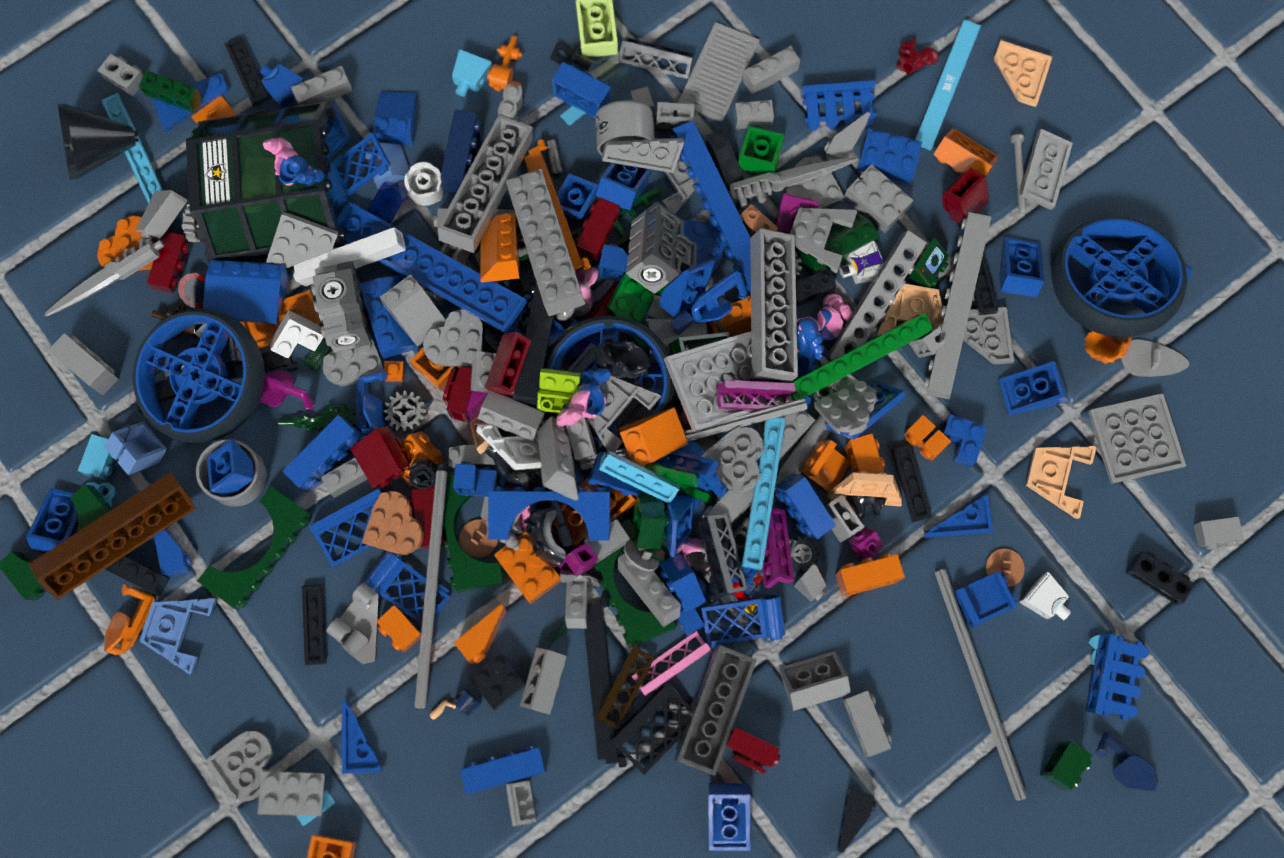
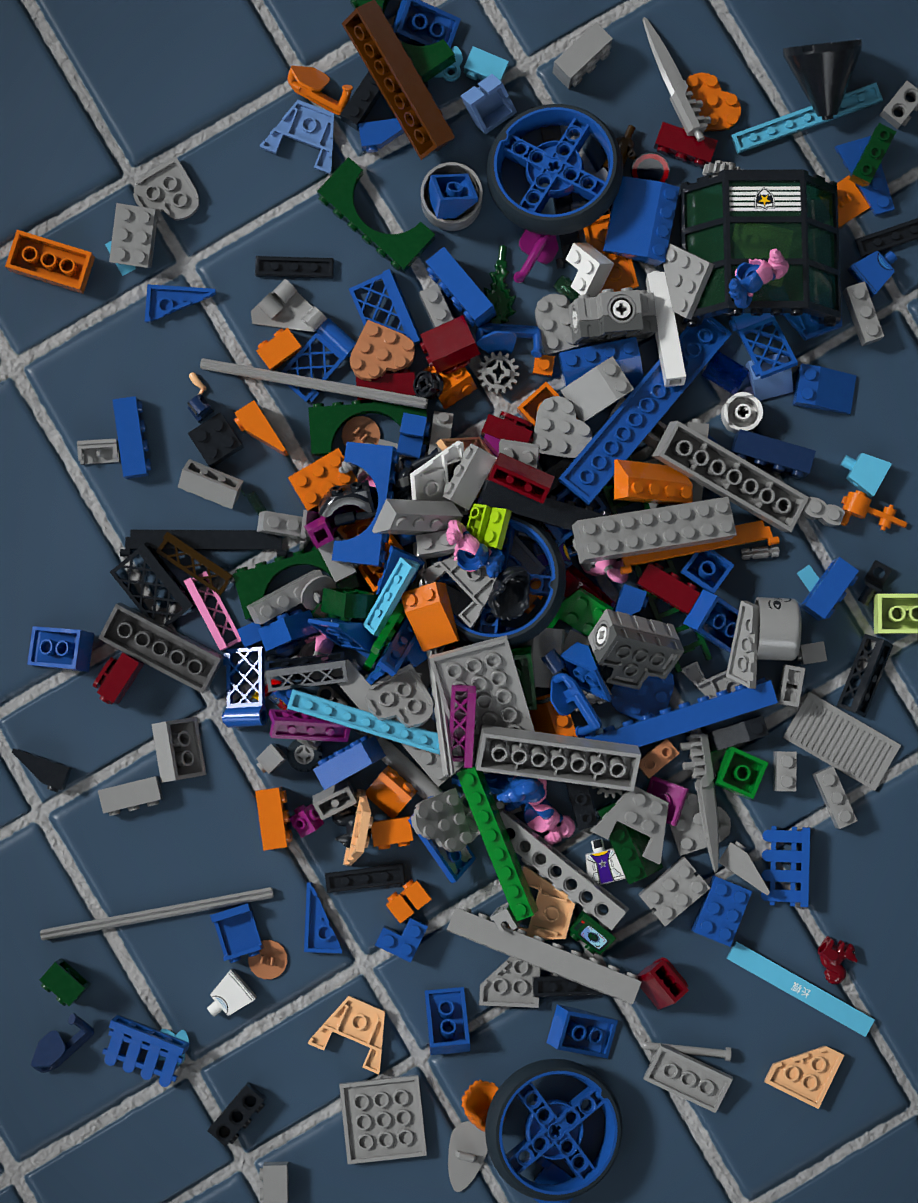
camera: 95 degrees right, 10 degrees up
(160, 214) = (734, 138): light grey slope -> none
(964, 153) = (713, 994): orange slope -> none

